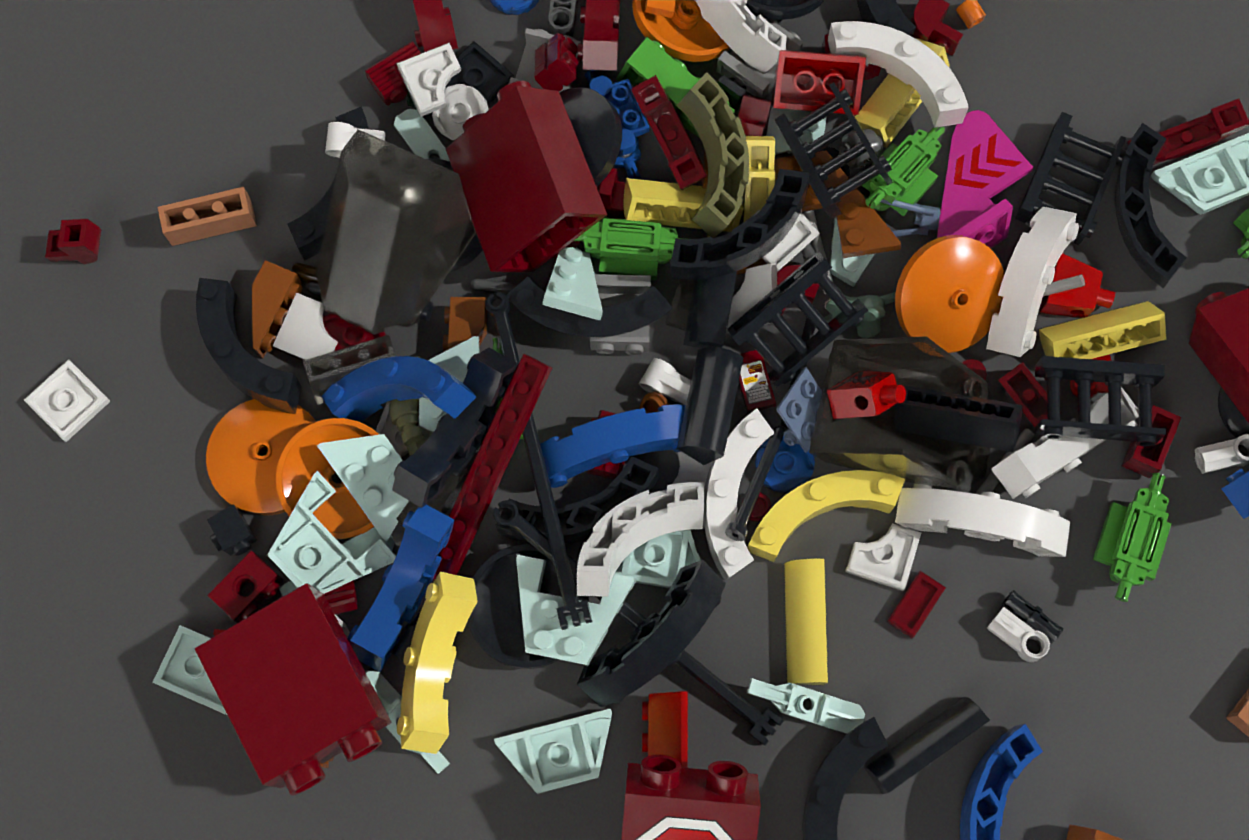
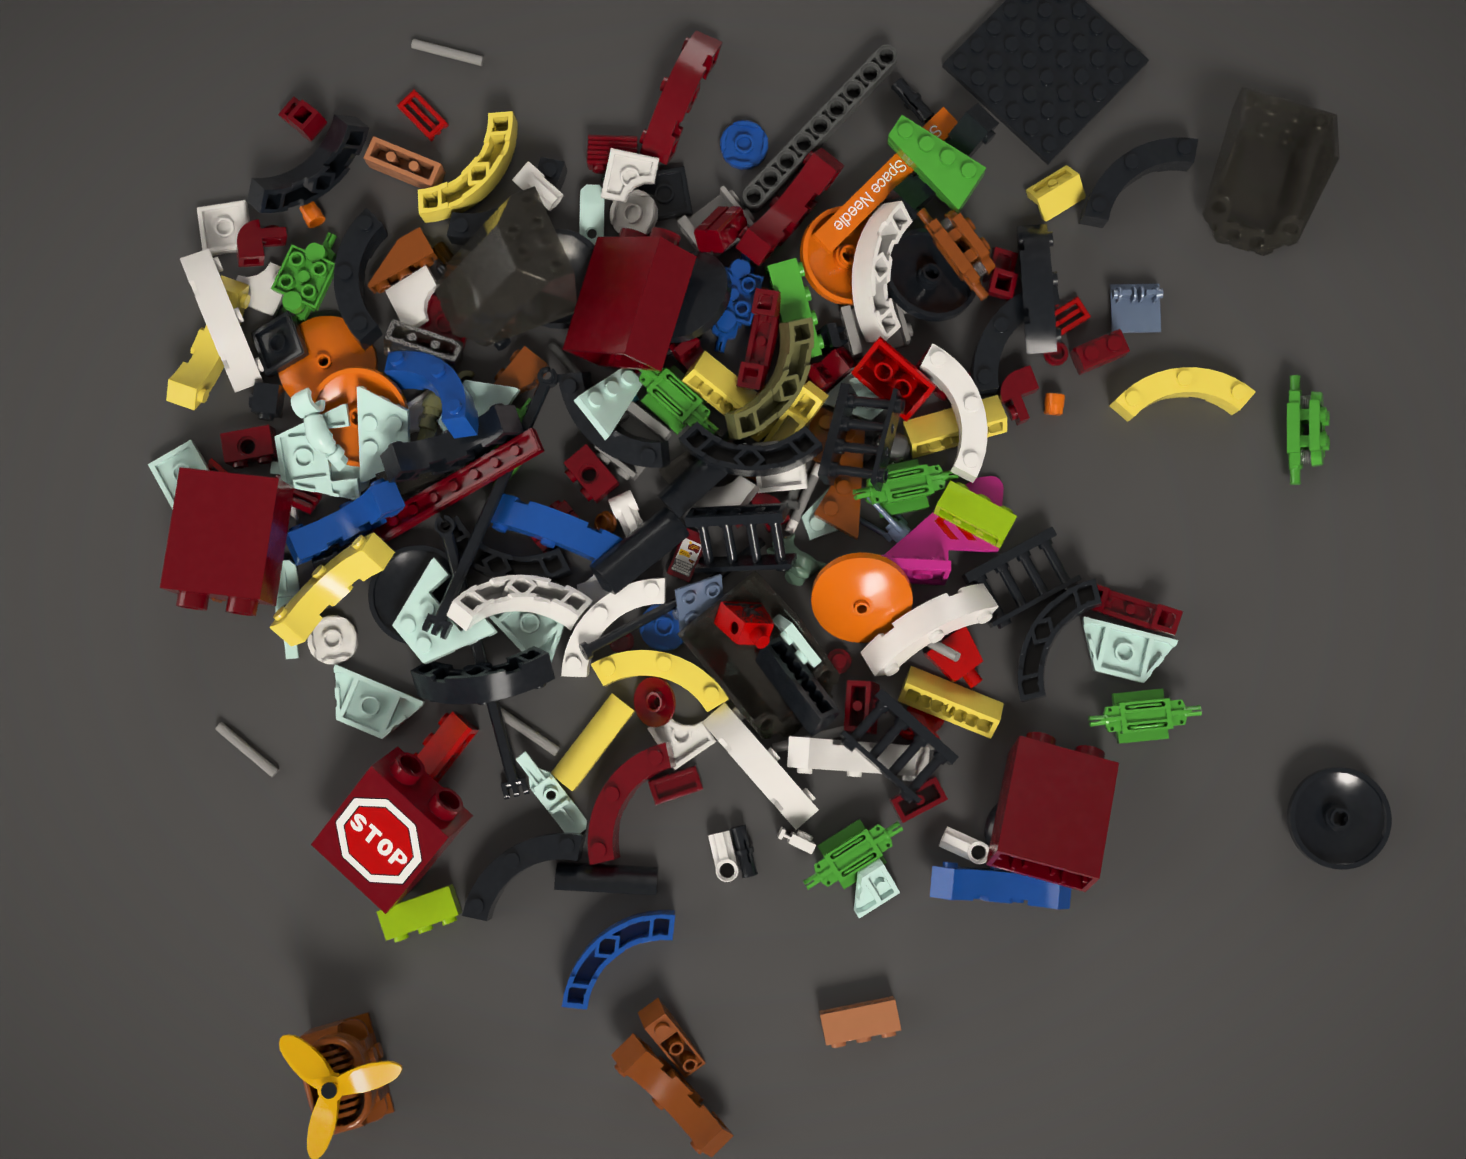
camera: 40 degrees right, 10 degrees up
(108, 389) = (252, 240): none -> dark red brick
(125, 282) = (316, 174): none -> black brick
(131, 478) = (222, 319): none -> white brick
(135, 516) = (195, 379): none -> light yellow brick
(147, 326) = (312, 215): none -> orange hose
(150, 431) = (260, 292): none -> white tile
(171, 94) = (447, 52): none -> light grey bar
(186, 389) = (306, 277): none -> bright green piece
(204, 467) = (279, 343): none -> black tile
(213, 169) = (436, 130): none -> red tile
(289, 180) = (478, 177): none -> light yellow brick
(305, 513) = (316, 428): none -> light aqua piece
(473, 718) = (333, 640): none -> white tile
(592, 359) = (586, 460): none -> dark red brick
(739, 661) = (529, 732): none -> light grey bar
(825, 546) = (647, 700): none -> dark red dish
(872, 654) = (615, 796): none -> dark red brick
(926, 374) = (793, 636): none -> light aqua wing
(987, 149) = (975, 513): none -> lime brick
(1080, 561) = (800, 839): none -> white plate
(1181, 556) = (873, 888): none -> light aqua wing

